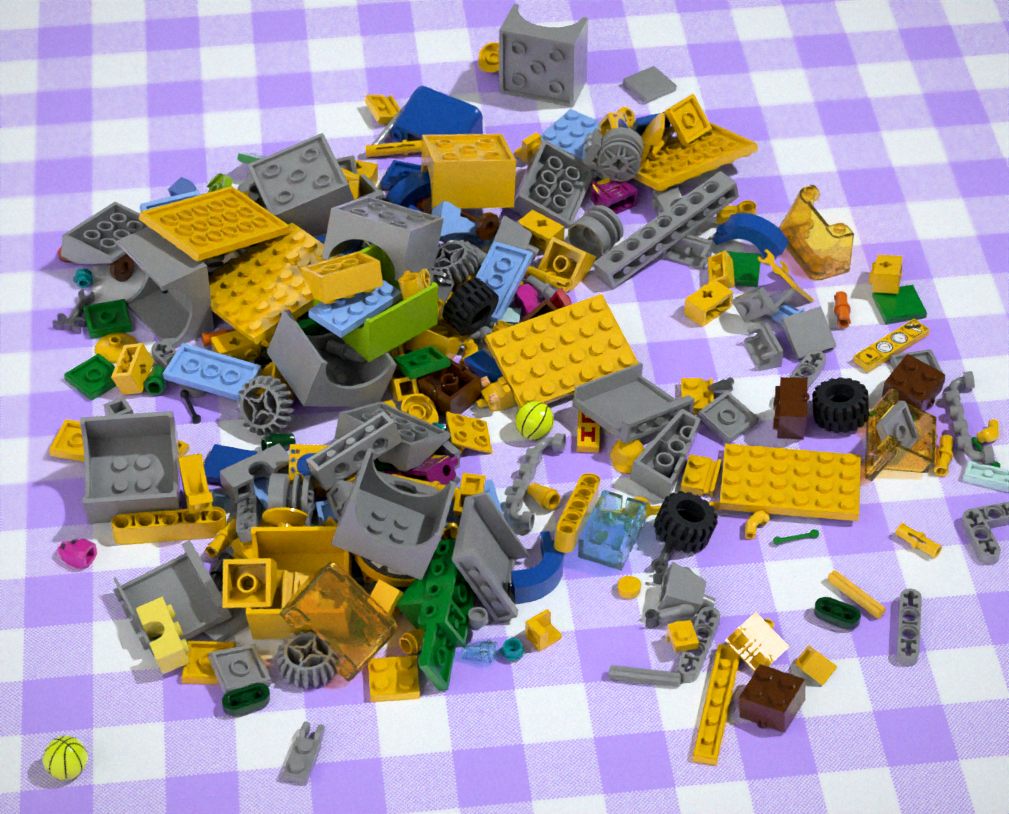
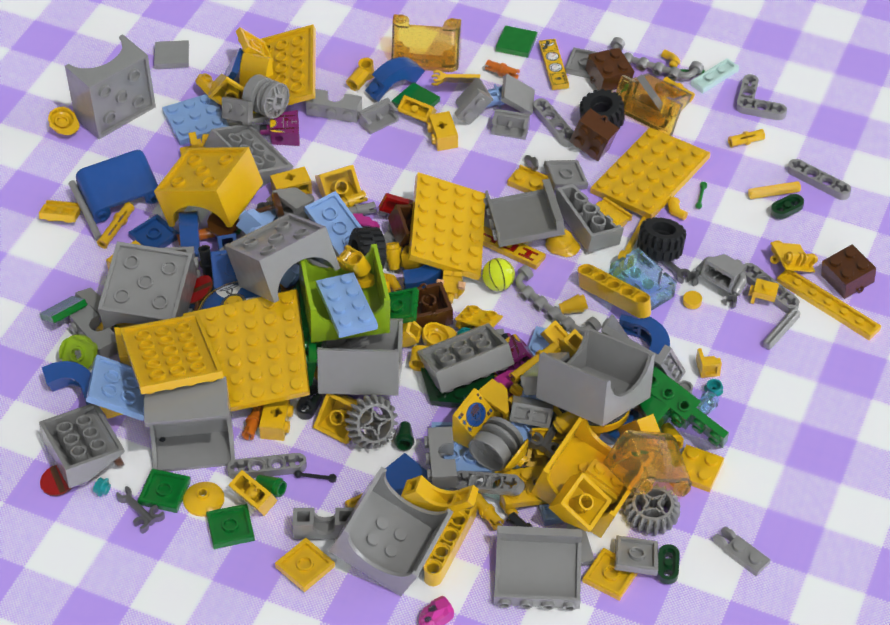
camera: 60 degrees left, 5 degrees up
(169, 648) = (597, 584): light yellow arch -> none
(210, 371) = (301, 441): light blue plate -> none
(343, 277) = (328, 291): yellow slope -> none
(347, 453) = (496, 376): light grey brick -> none
(596, 231) = (326, 151): light grey wheel -> none
(666, 229) = (364, 166): light grey brick -> none
(815, 665) = (827, 237): yellow panel -> none
(886, 274) = (490, 30): yellow brick -> none

